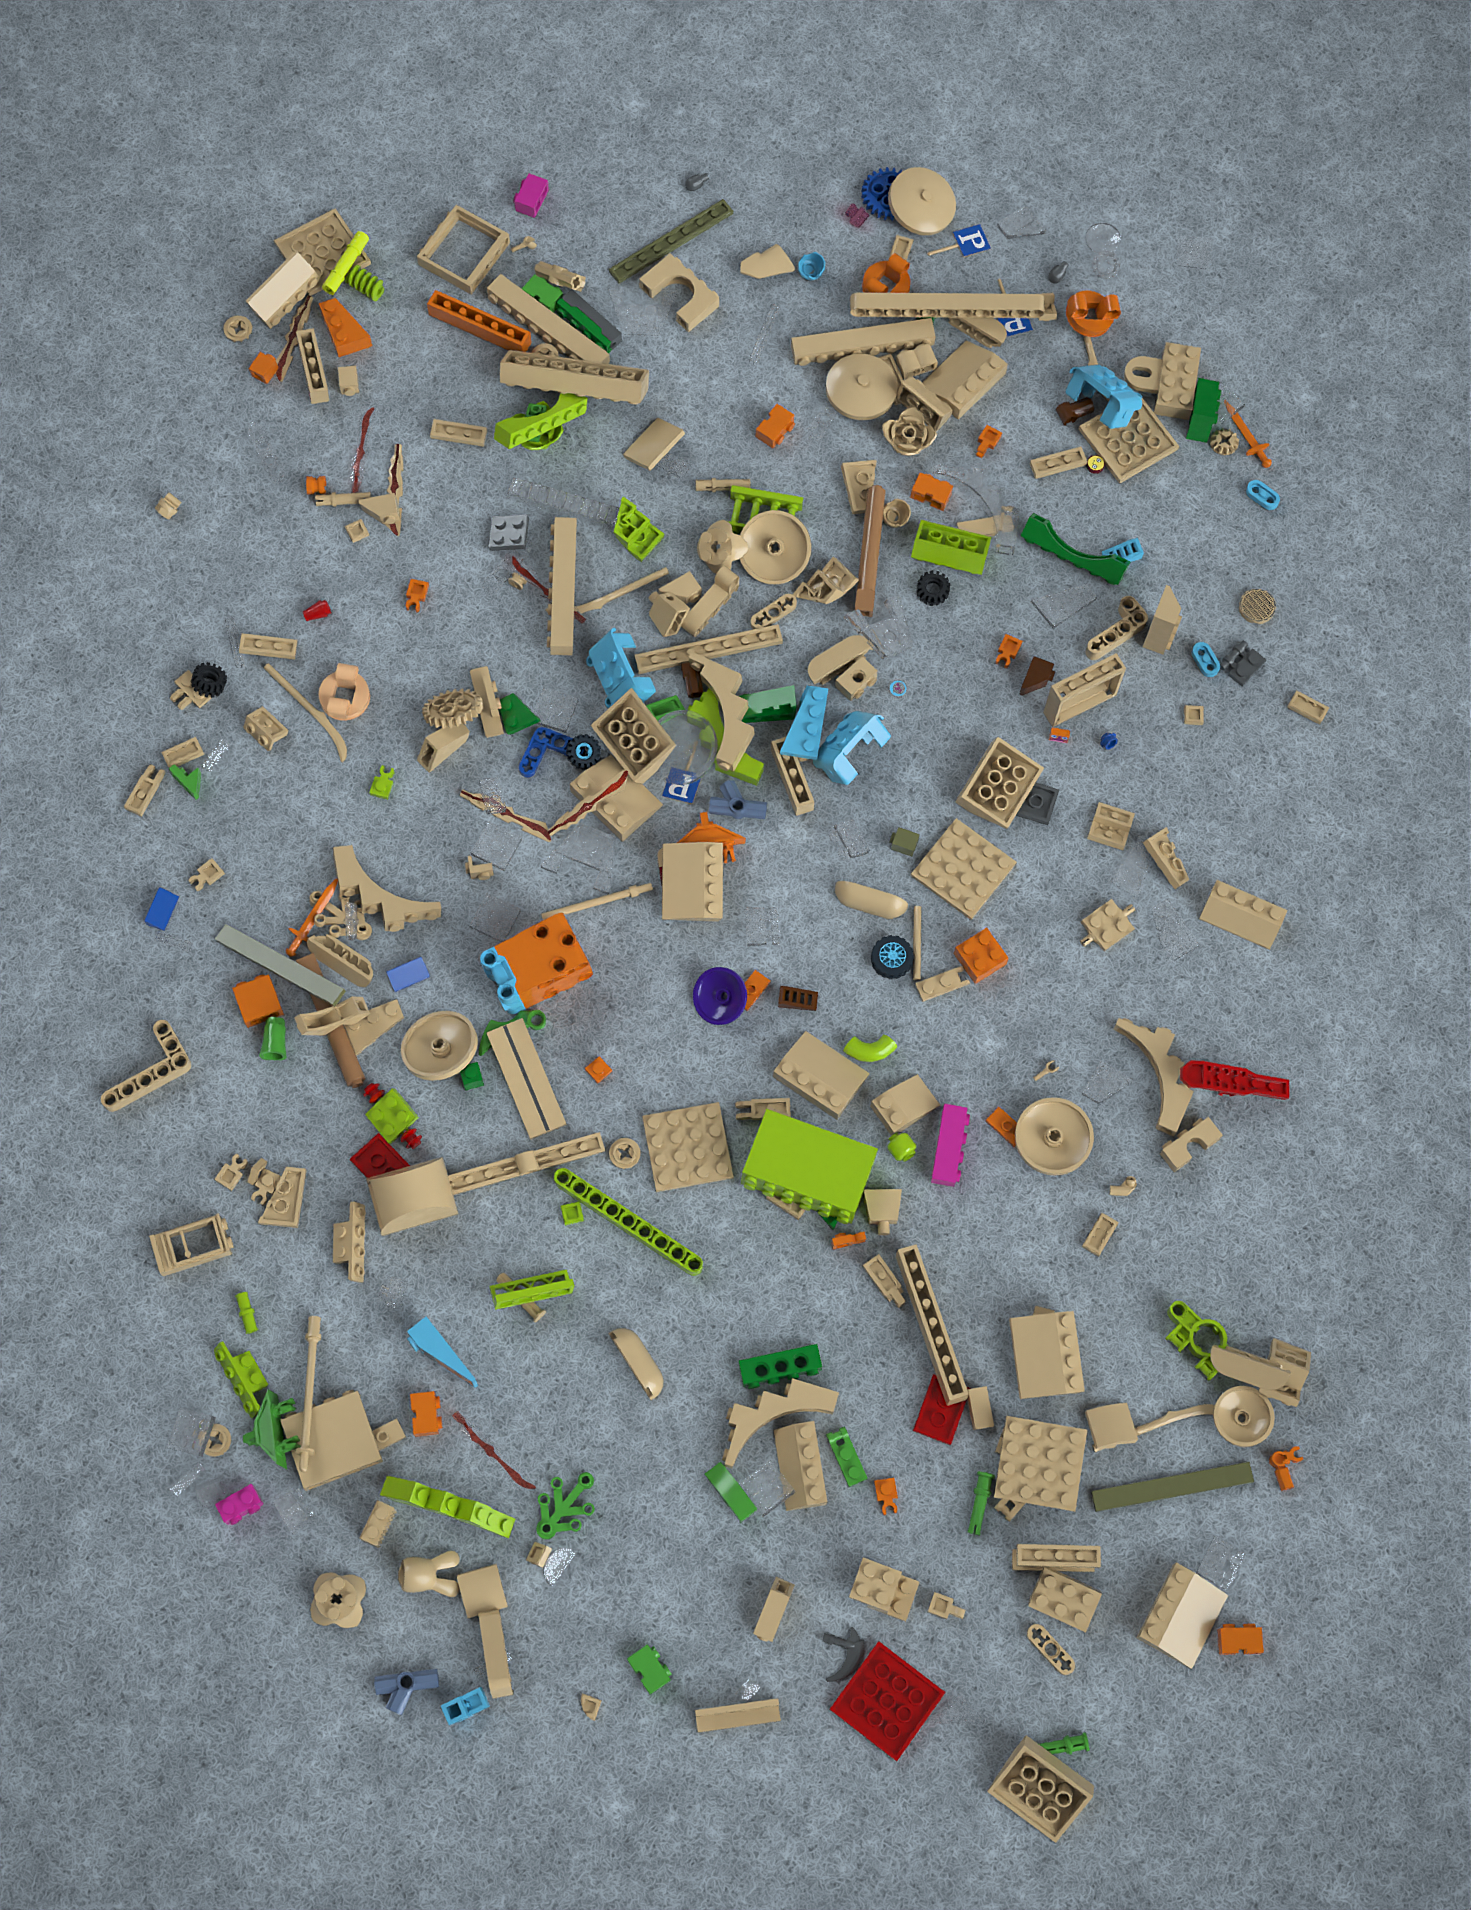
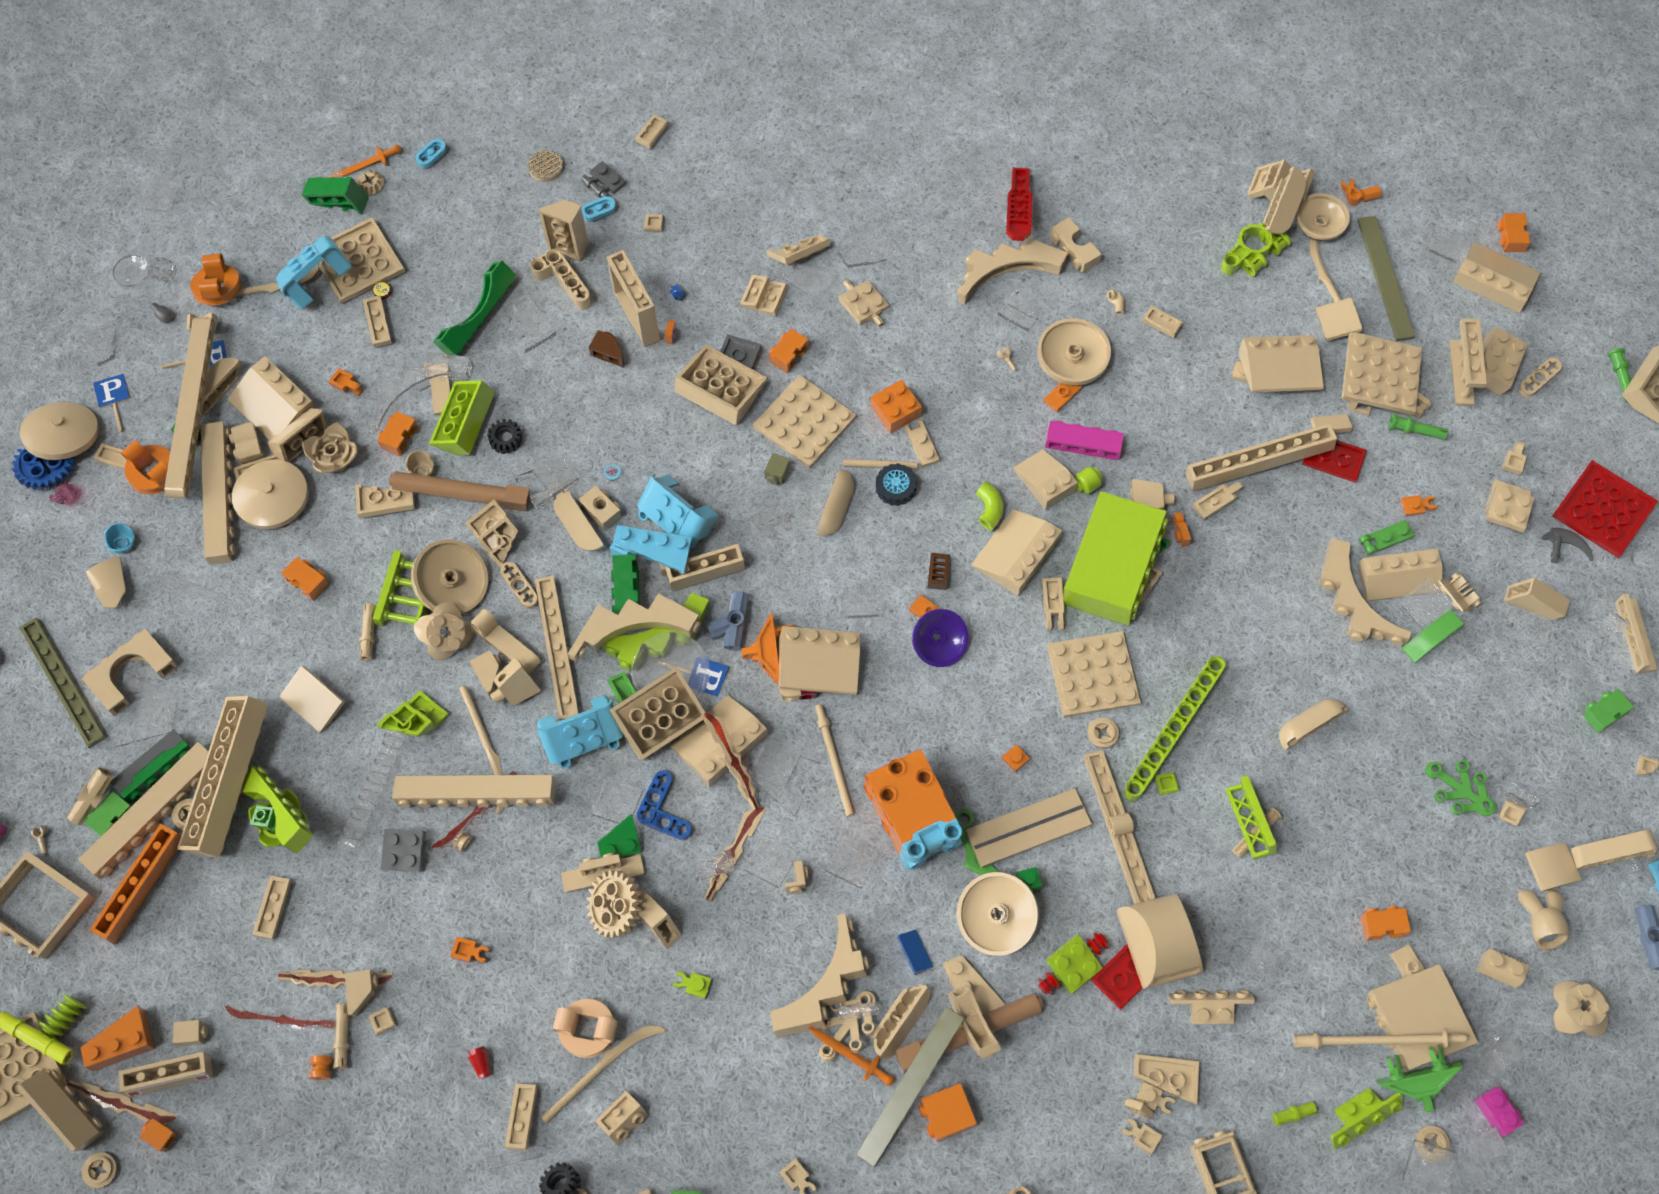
camera: 85 degrees left, 5 degrees down
(274, 1040) = (991, 1093): bright green plant -> none
(431, 1344) = (1312, 920): medium azure slope -> none
(447, 1504) = (1483, 895): lime arch -> none
(514, 1473) = (1413, 860): sword -> none
(593, 751) = (668, 777): black bush -> none
(692, 680) = (590, 663): reddish brown piece -> none
(777, 1521) = (1460, 601): none -> tan hinge
(809, 1354) = (1311, 619): green brick -> none
(1008, 649) = (575, 371): orange plate -> none
(1044, 849) = (790, 346): none -> orange brick
(1070, 412) = (322, 307): reddish brown piece -> none
(1127, 545) = (478, 260): medium azure slope -> none
(1171, 379) = (298, 217): tan brick -> none
(1243, 914) = (855, 192): tan slope -> none

